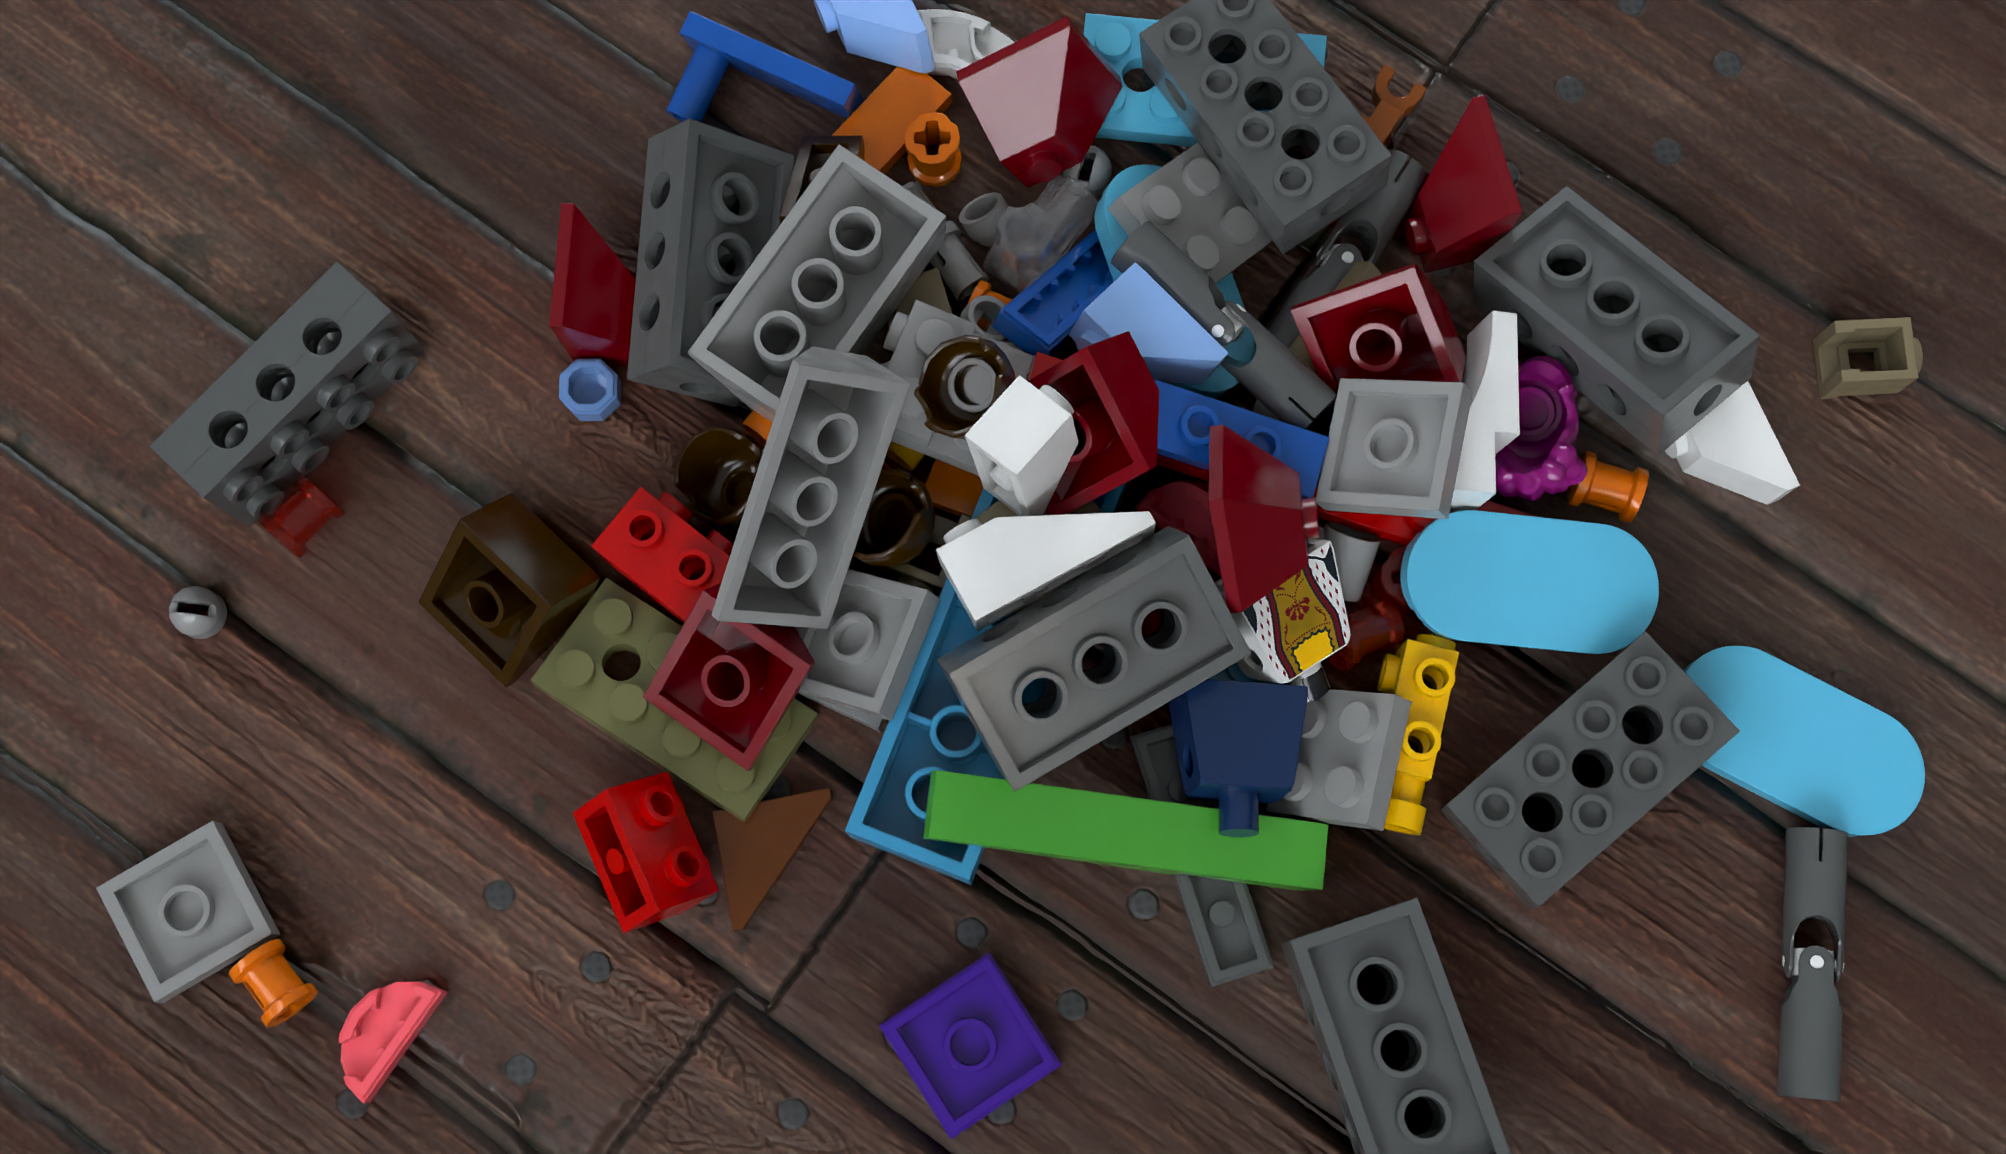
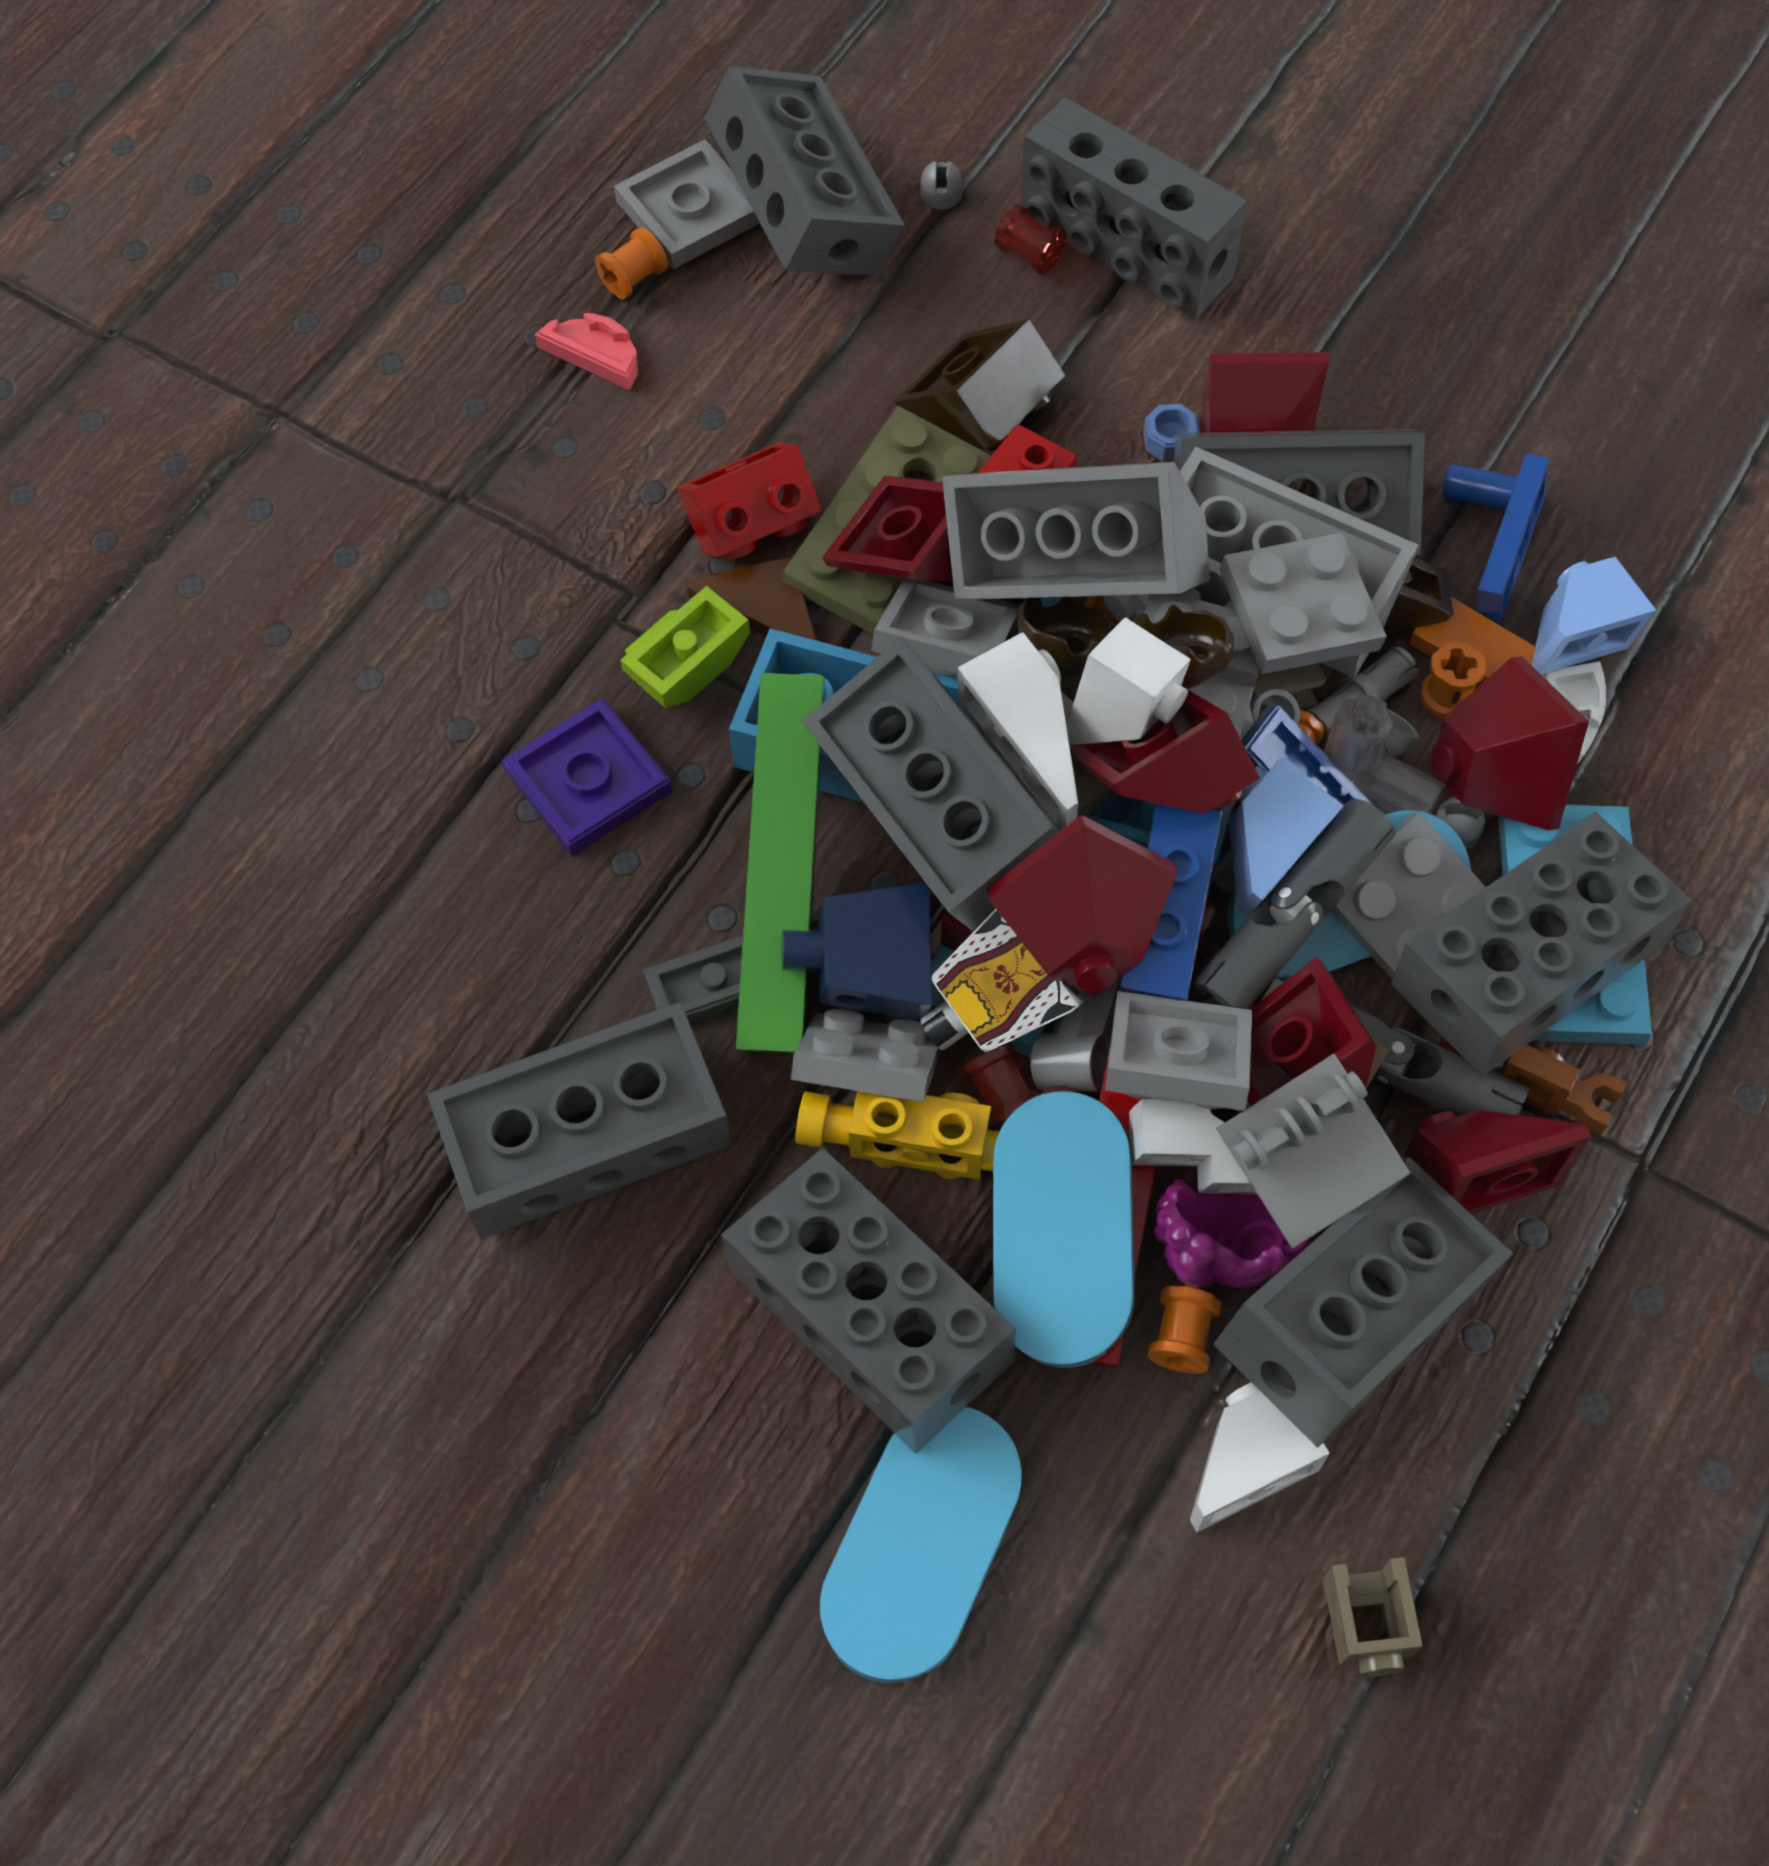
camera: 85 degrees right, 15 degrees down
(180, 768) = (803, 172): none -> dark grey brick
(821, 938) = (686, 648): none -> lime slope
(909, 266) = (1302, 603): none -> light grey plate
(1501, 338) = (1313, 1150): none -> light grey hinge
(1811, 1007) = (641, 1548): dark grey piece -> none

